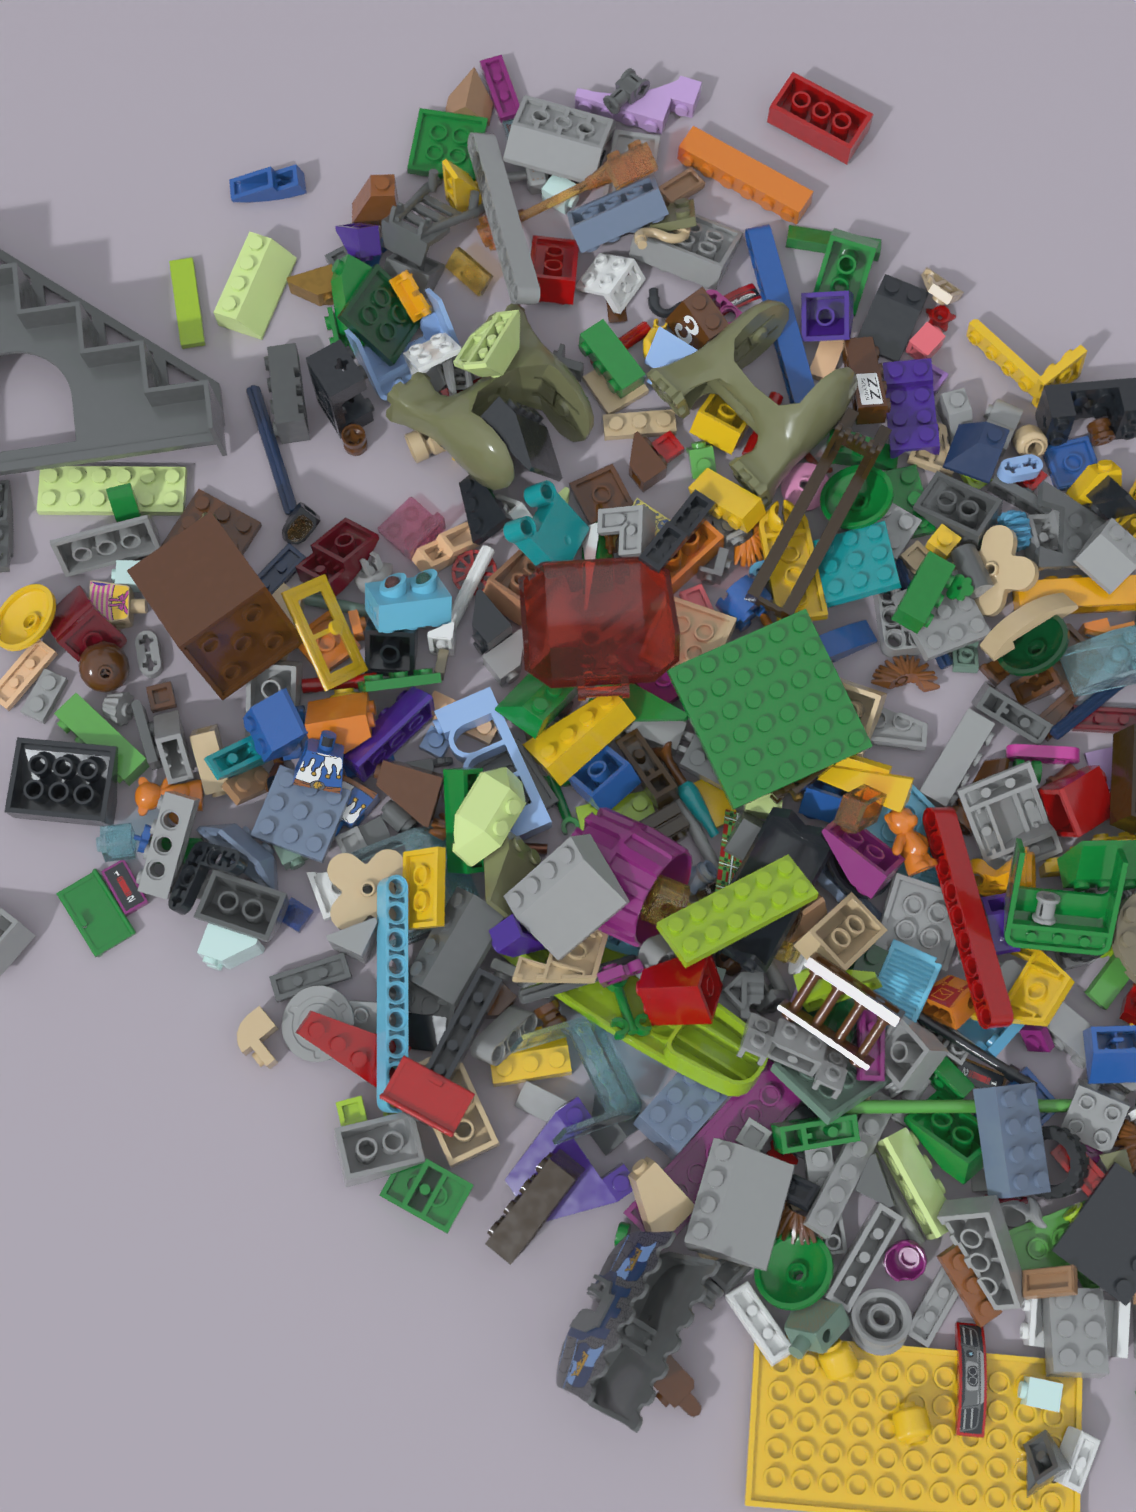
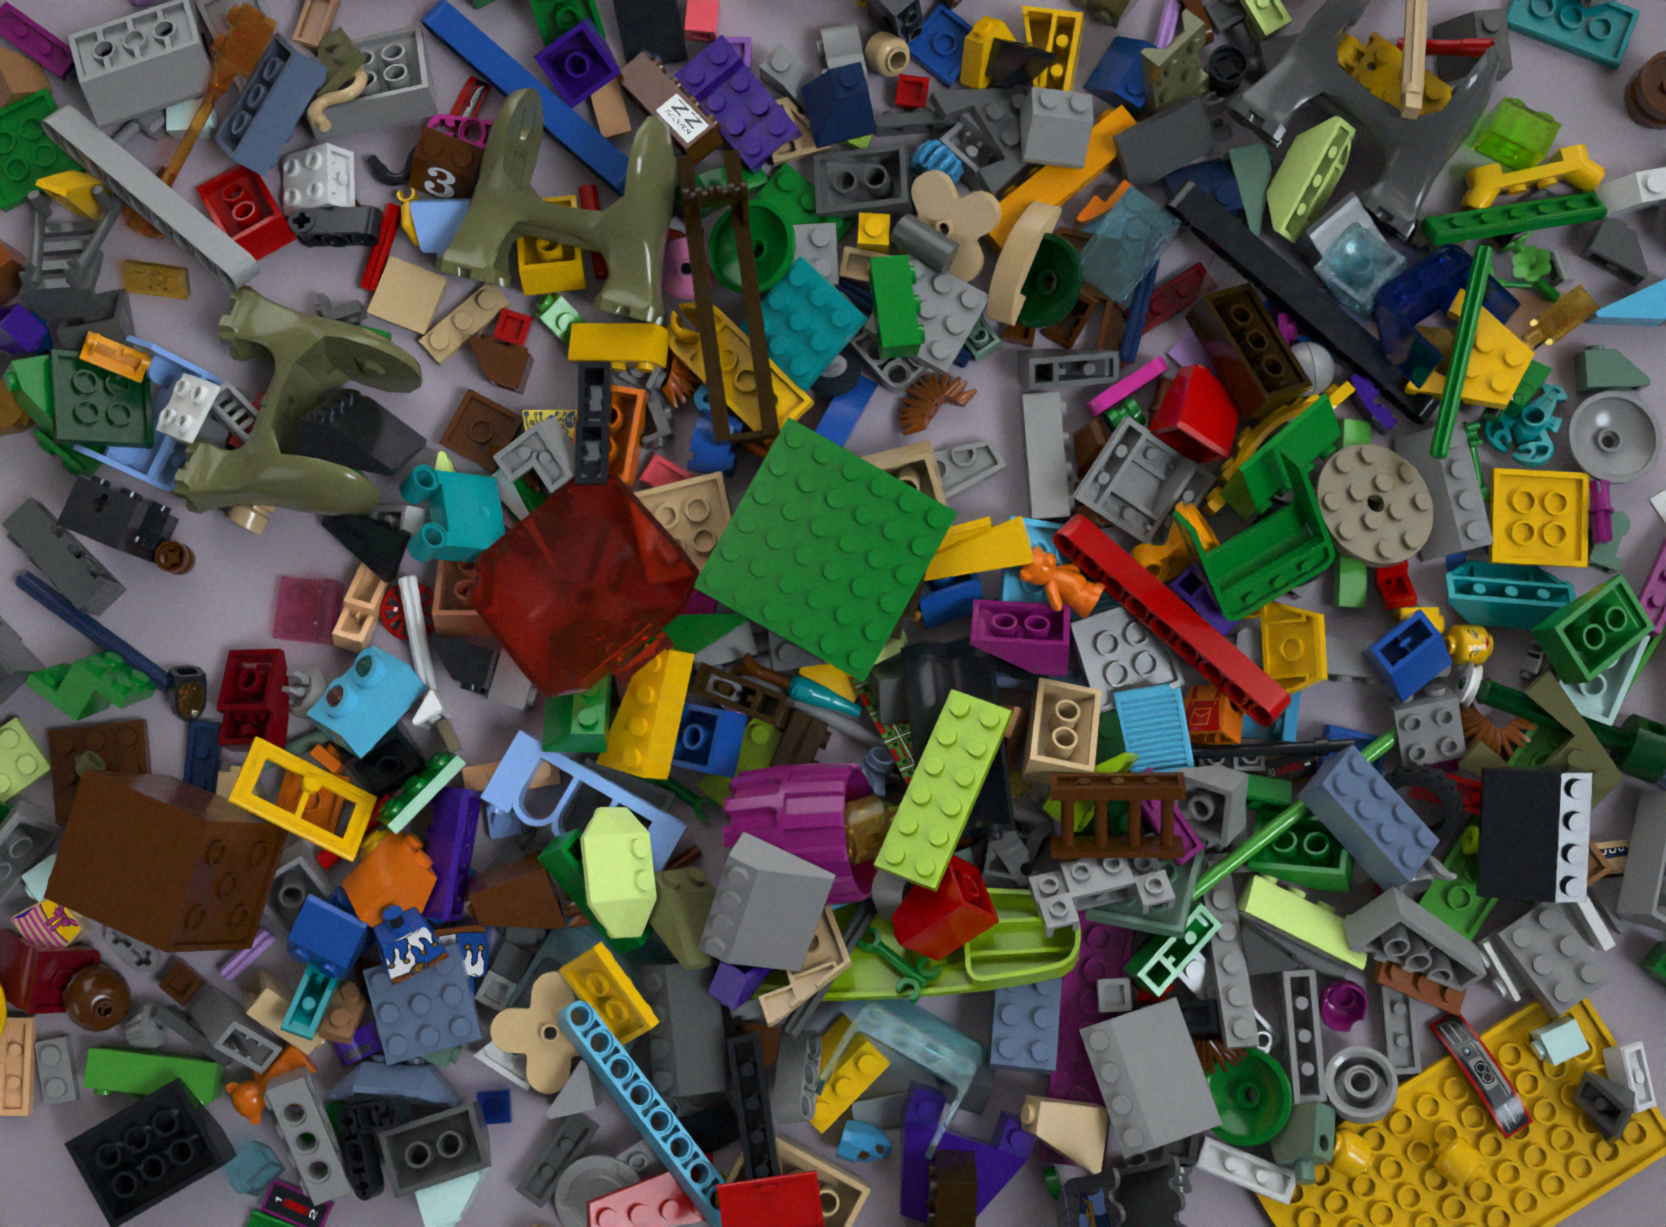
camera: 35 degrees left, 10 degrees up
(144, 838) = (279, 1146): blue piece -> none
(213, 709) = (245, 957): none -> lavender axle
(242, 815) = (364, 1043): none -> dark purple leg
(247, 476) = (91, 685): none -> green bracket
(491, 346) = (247, 360): yellowish green wedge -> none
(514, 1113) = (862, 1142): none -> dark azure rock
(550, 1014) = (830, 1023): reddish brown wheel -> none
(597, 307) = (337, 226): none -> black piece
(611, 359) = (383, 274): green brick -> none
(614, 974) = (864, 939): magenta plate -> none
(855, 614) = (839, 376): none -> black wheel
(859, 808) = (991, 590): clear orange brick -> none
(960, 582) = (935, 270): green plant -> none
(1021, 471) = (902, 97): light blue beam -> none
(1037, 1038) = (1322, 692): magenta plate -> none
(1046, 908) = (1246, 559): light grey bush -> none
(1049, 1282) = (1497, 929): medium nougat tile -> none

